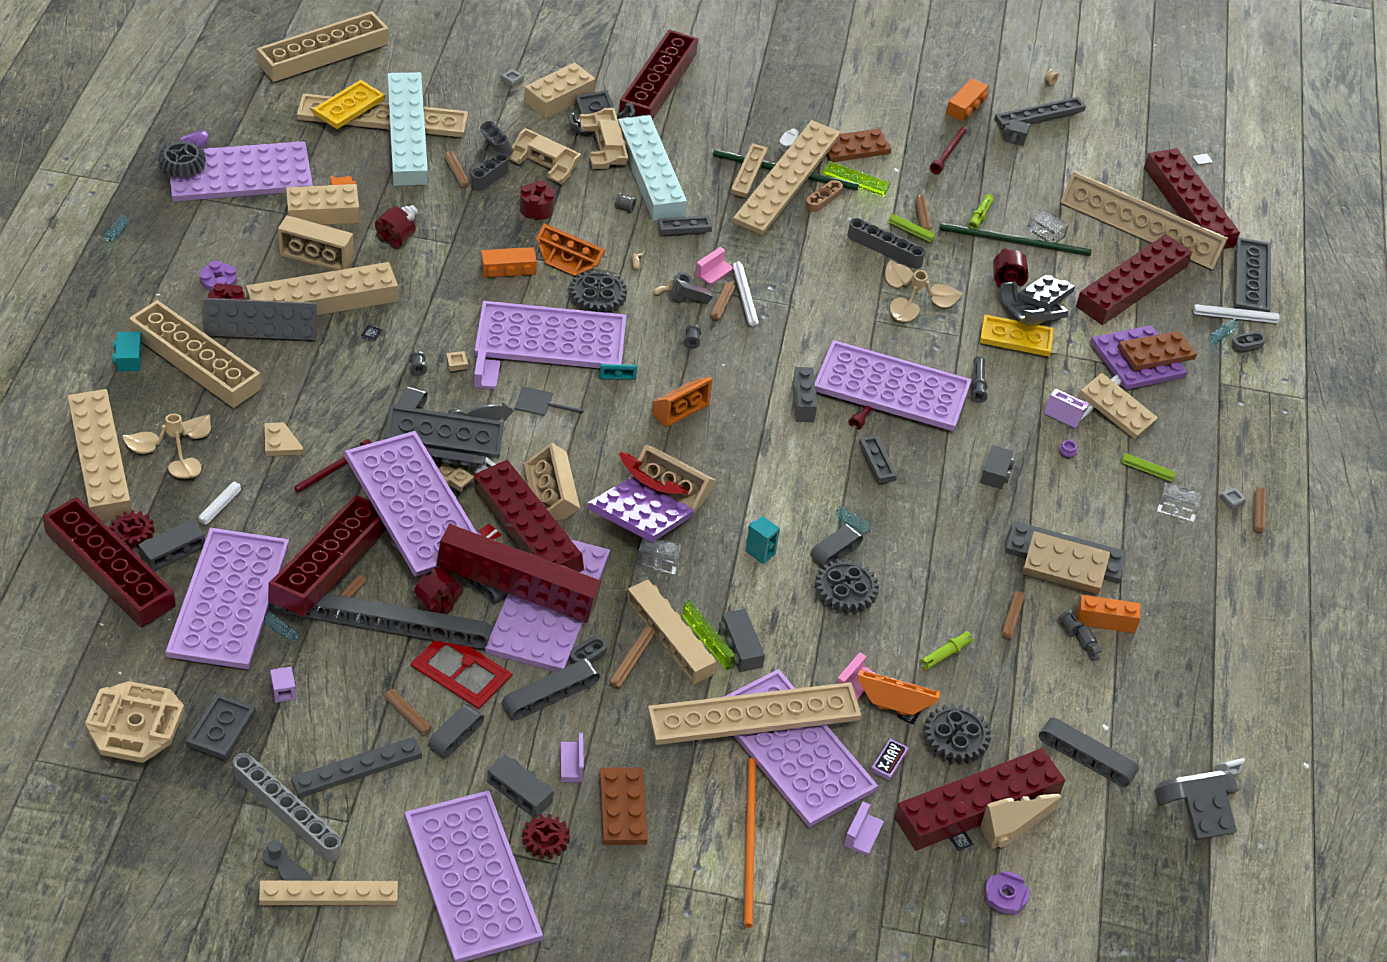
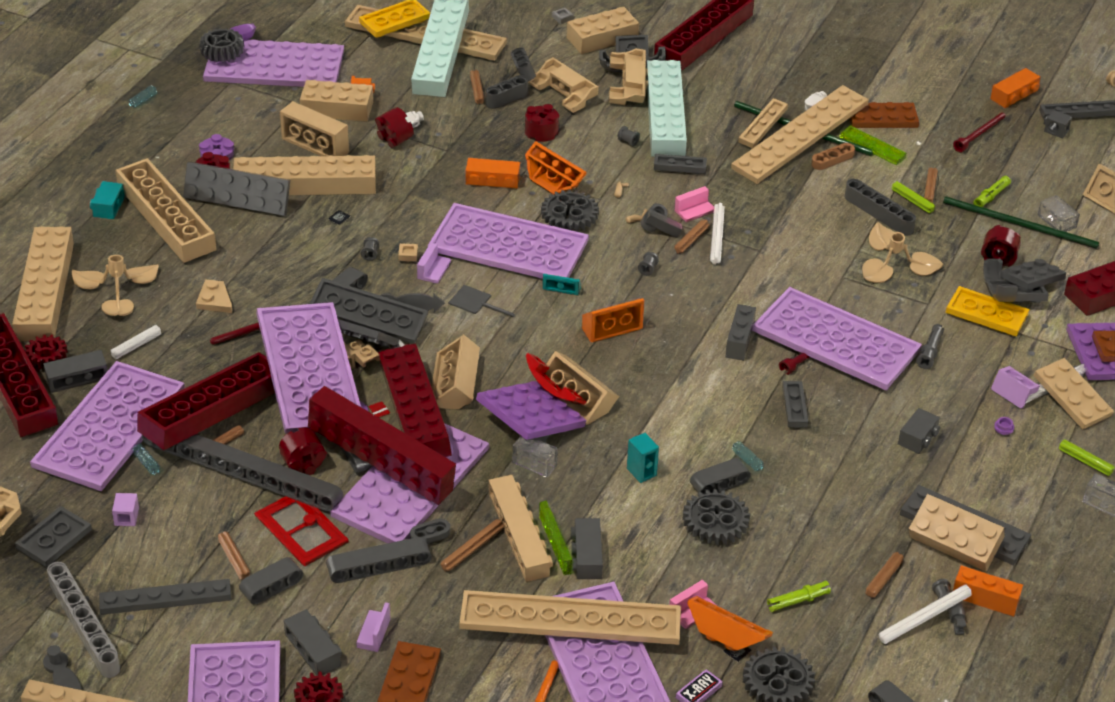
camera: 20 degrees right, 5 degrees down
(1063, 647) = (924, 614): none -> white axle

